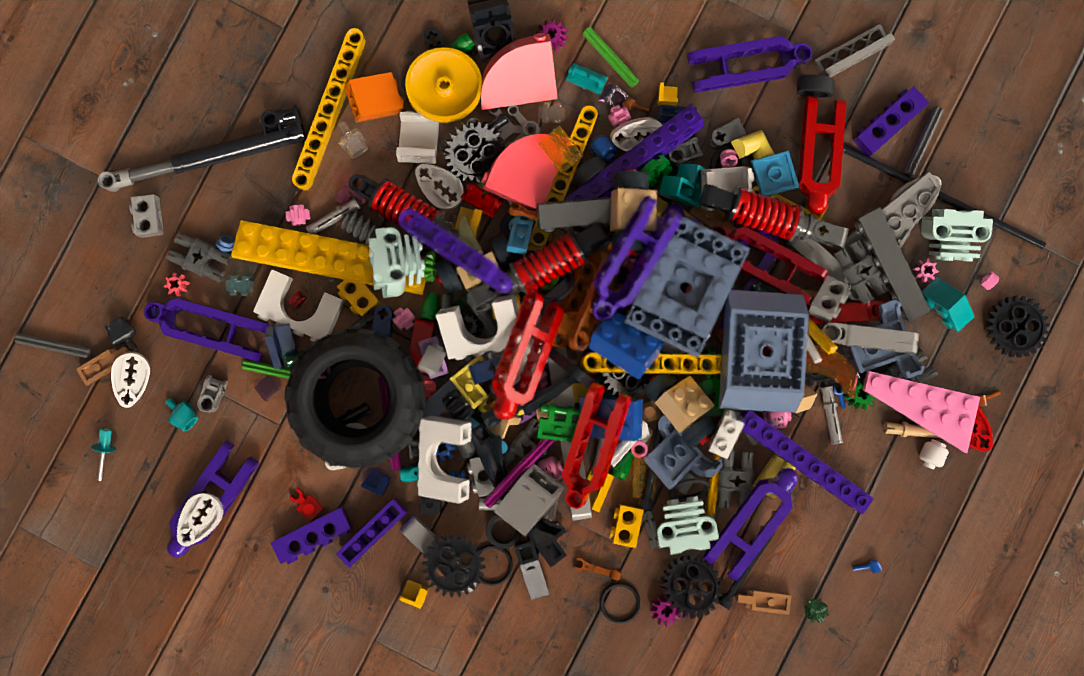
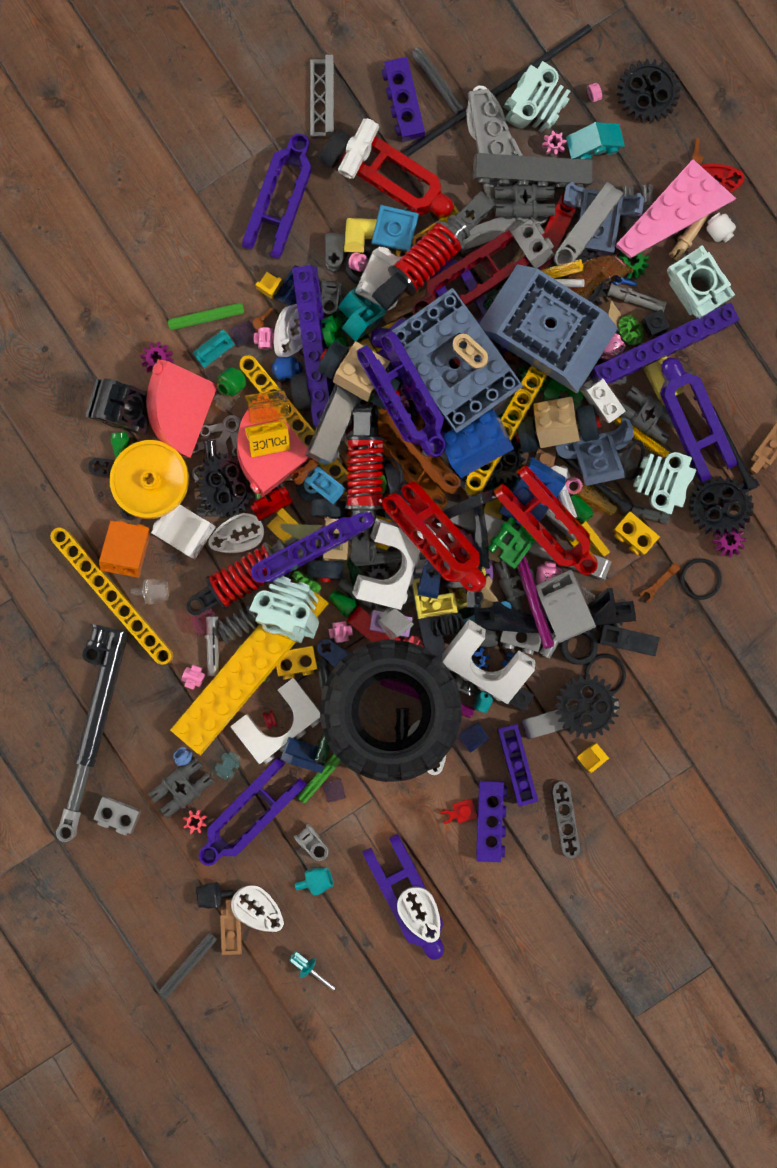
camera: 60 degrees left, 0 degrees up
(349, 599) = (566, 819): none -> flat silver beam
(533, 164) = (268, 438): none -> yellow panel
(565, 108) = (231, 382): none -> green head
(702, 295) = (471, 351): none -> tan plate
(802, 417) = (625, 325): none -> bright green gear
(818, 443) = (655, 324): none -> black brick
(826, 104) = (358, 148): none -> white piece
(891, 456) = (703, 266): none -> light aqua piece

